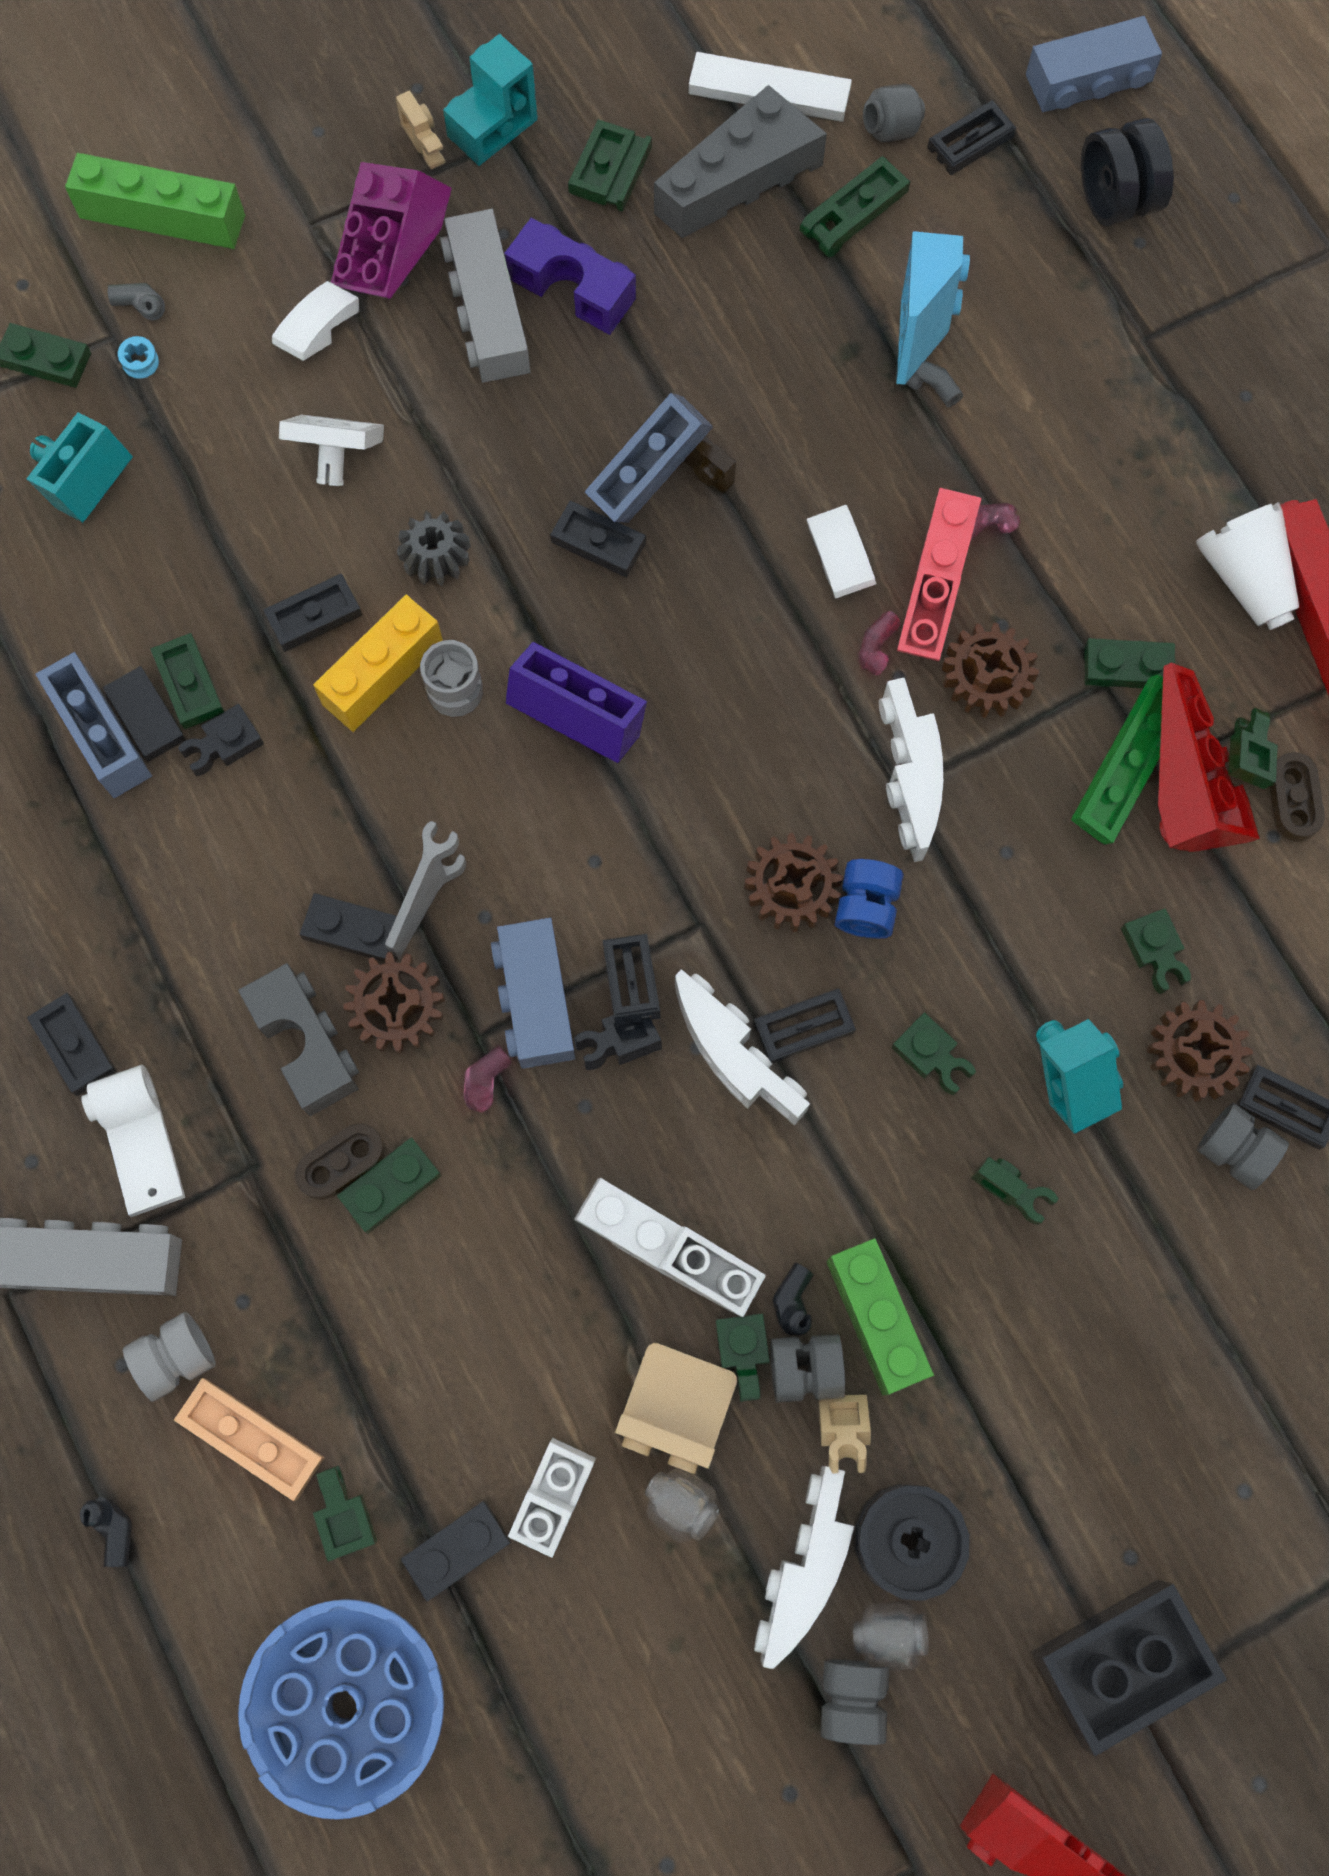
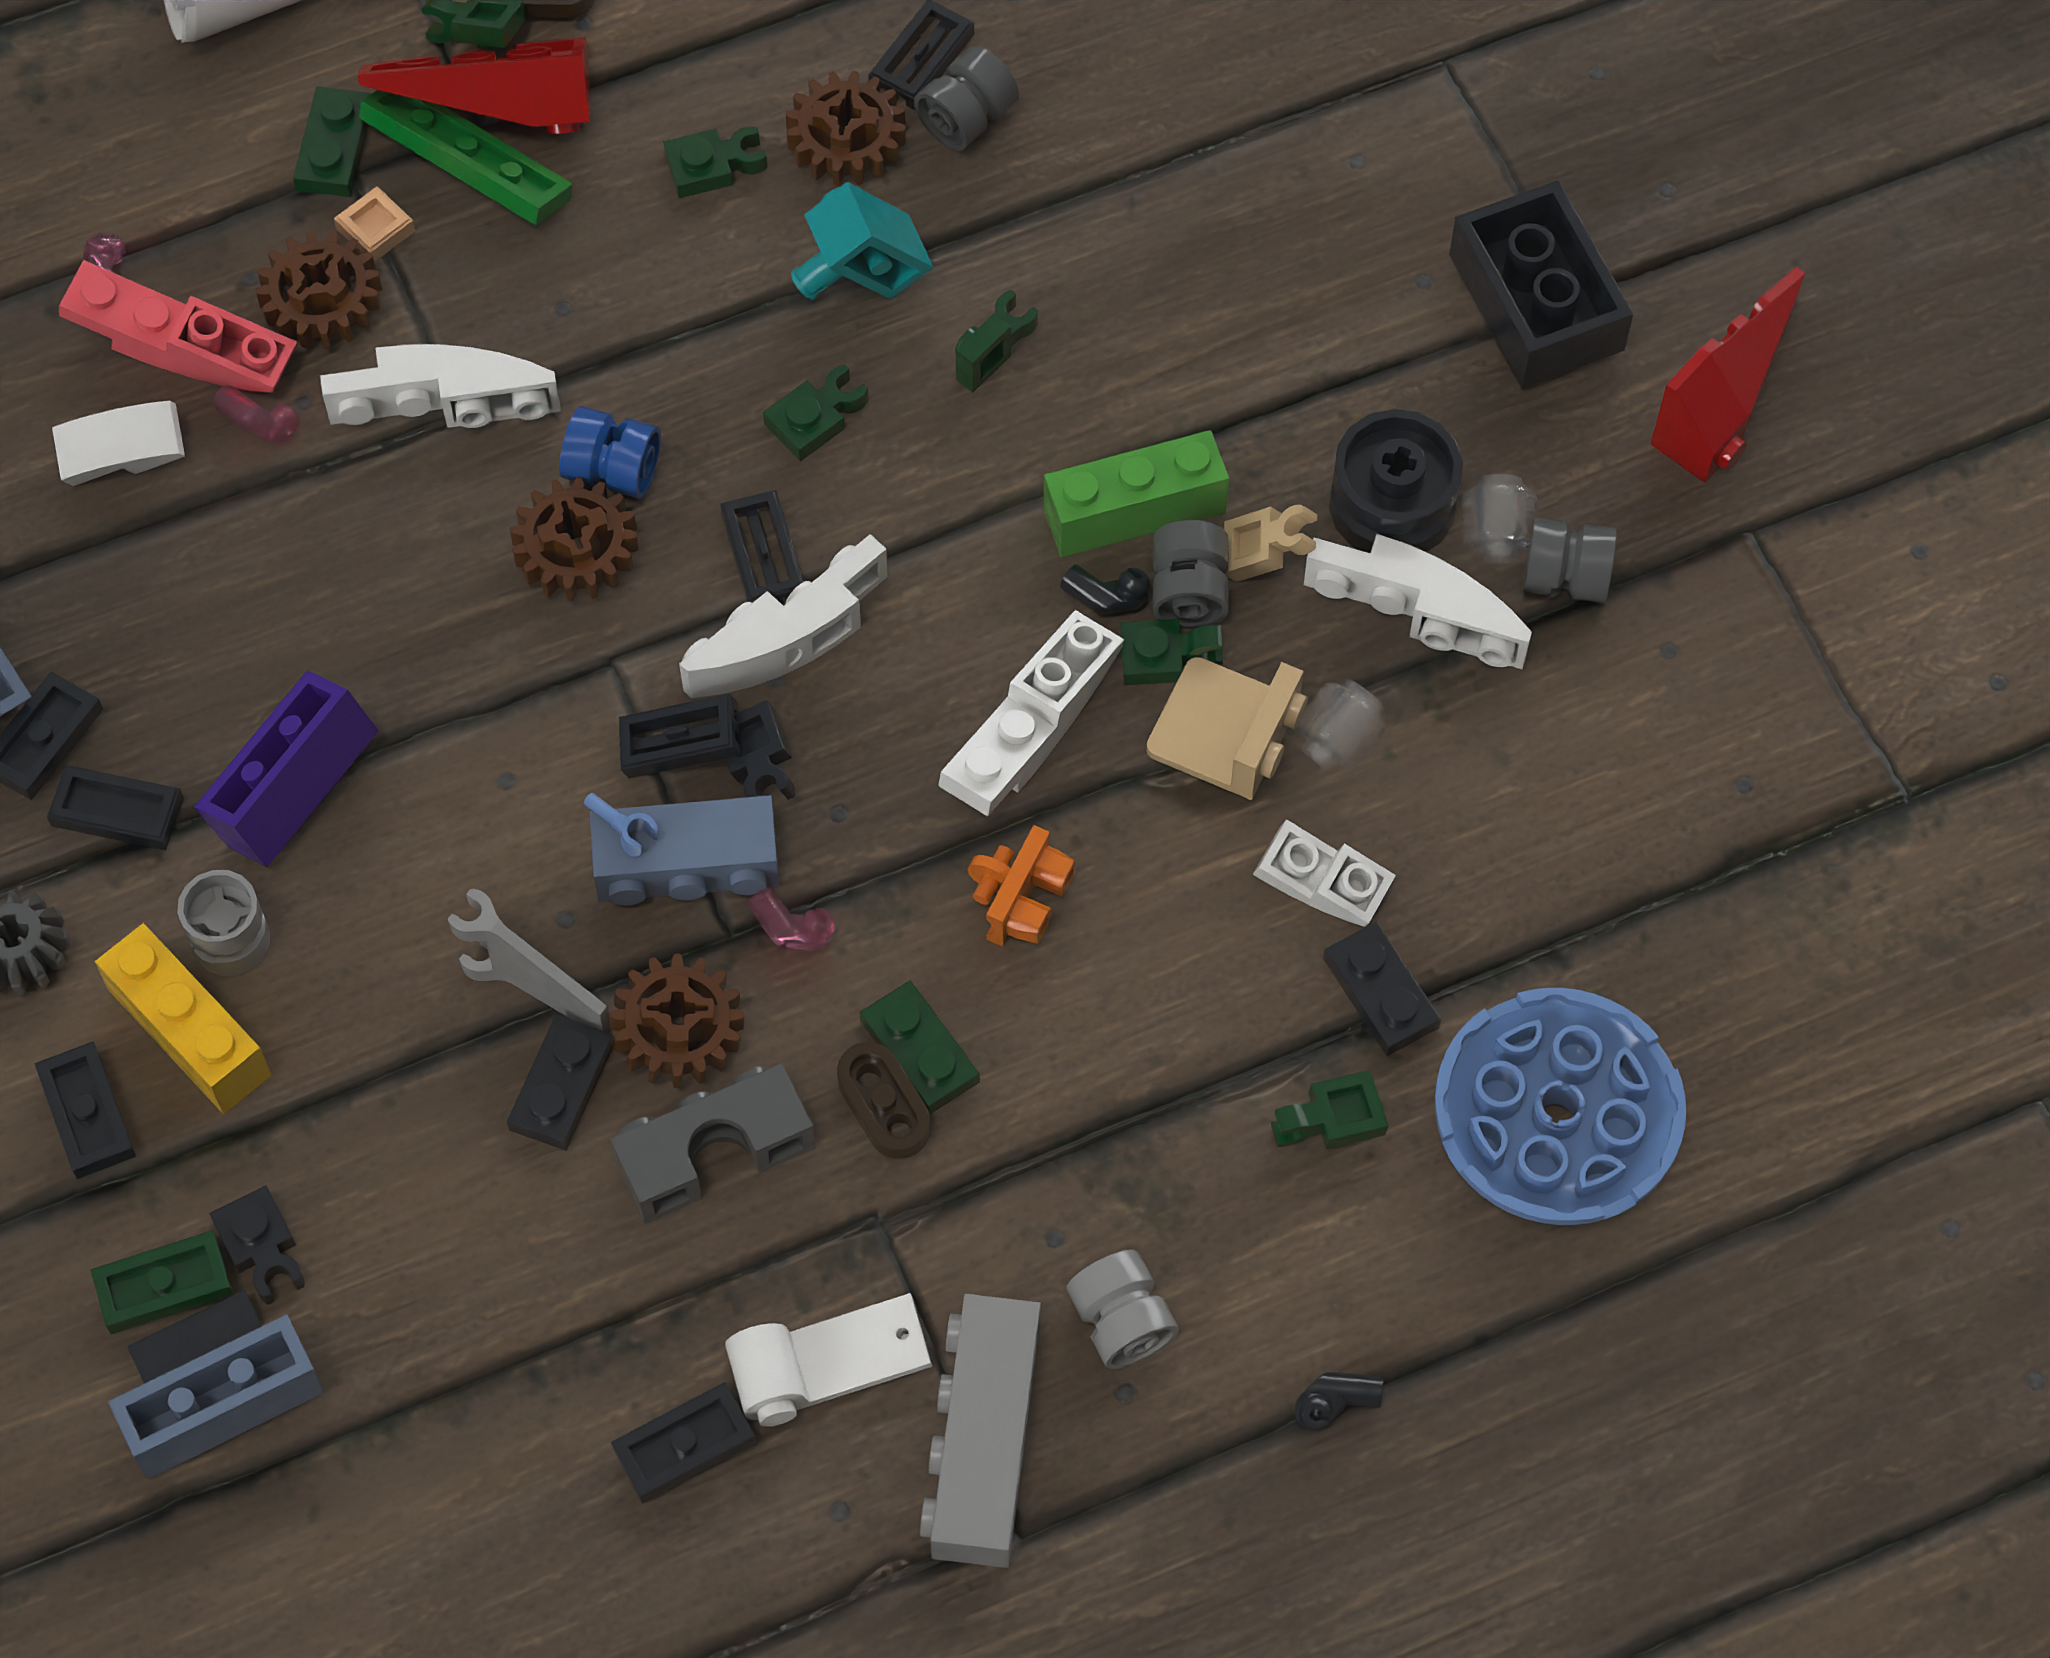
camera: 85 degrees left, 10 degrees down
(249, 1439) = (1232, 1221): light nougat plate -> none
(537, 940) = (623, 824): none -> medium blue hand
(539, 1262) = (1012, 910): none -> orange hips
(550, 597) = (115, 807): none -> black tile
(1059, 704) = (375, 223): none -> light nougat tile

